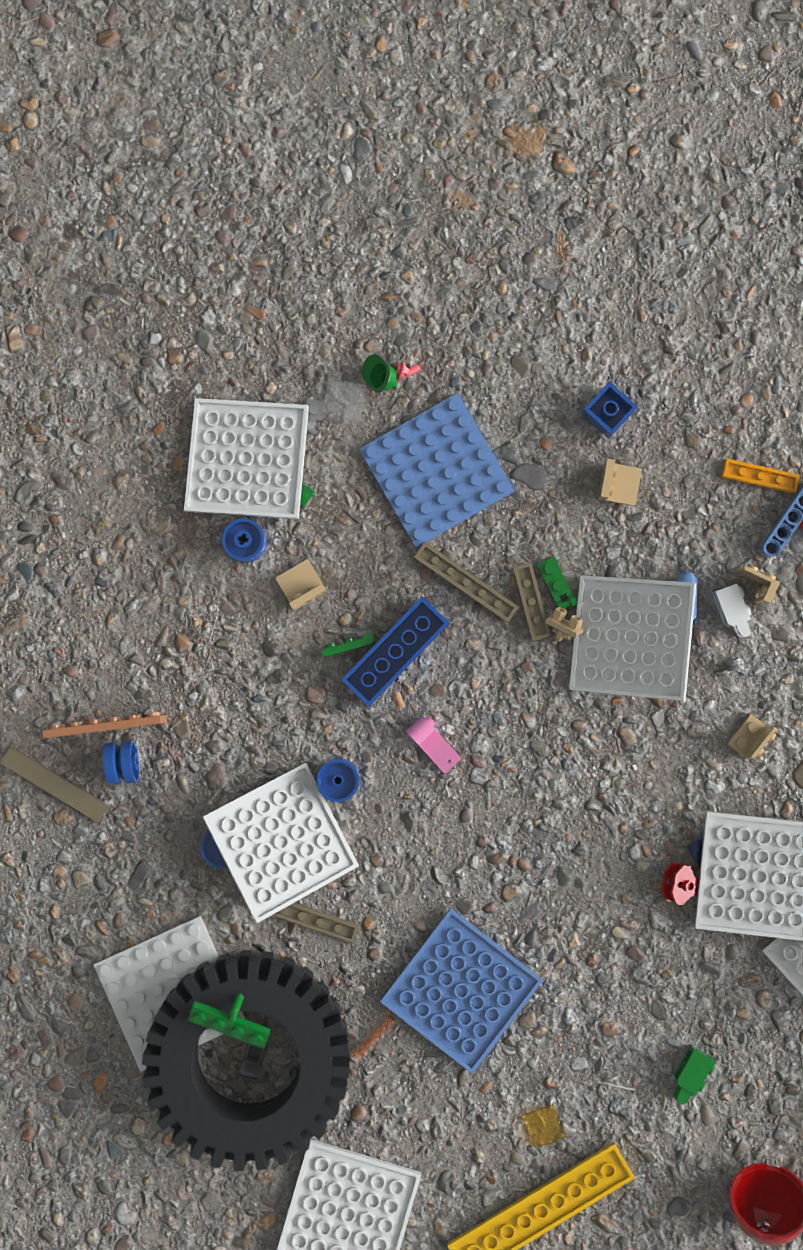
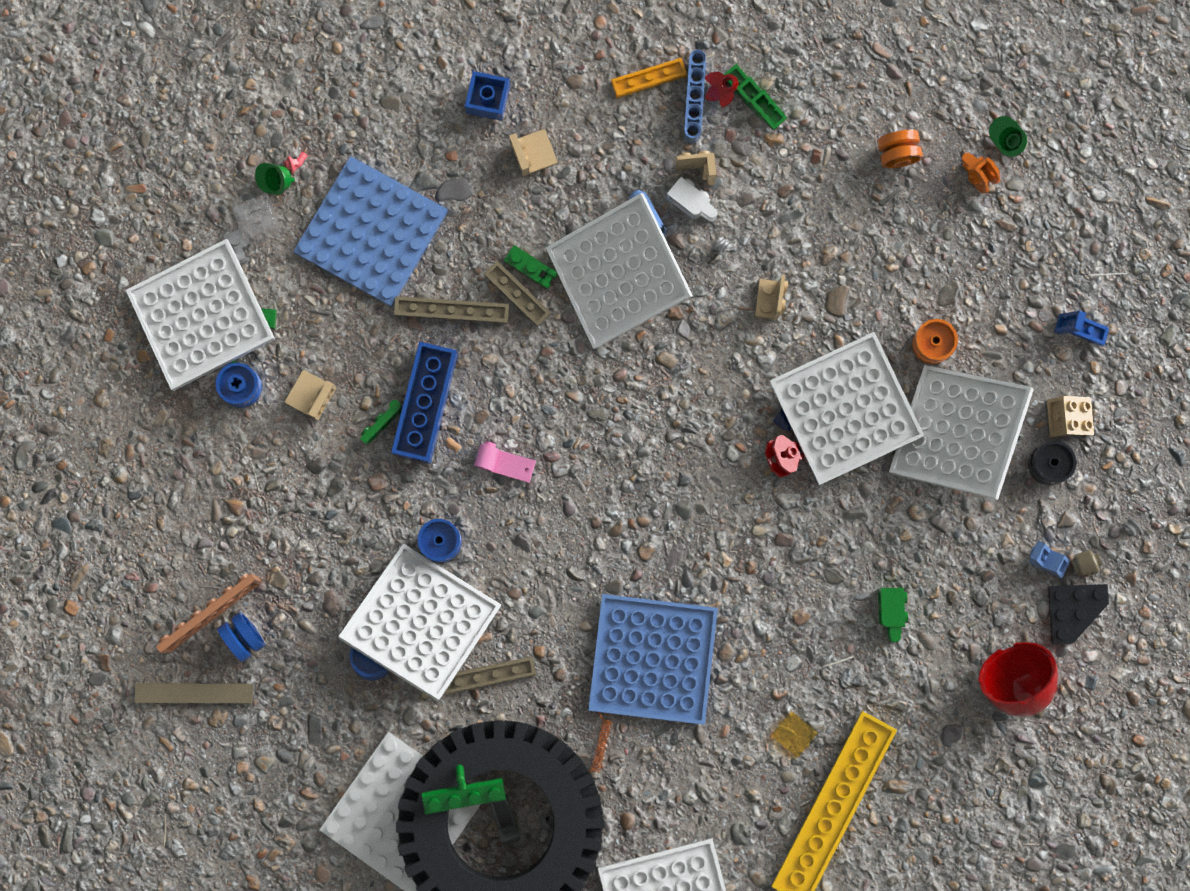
camera: 30 degrees left, 5 degrees down
(563, 627) = (563, 294): tan hips -> none

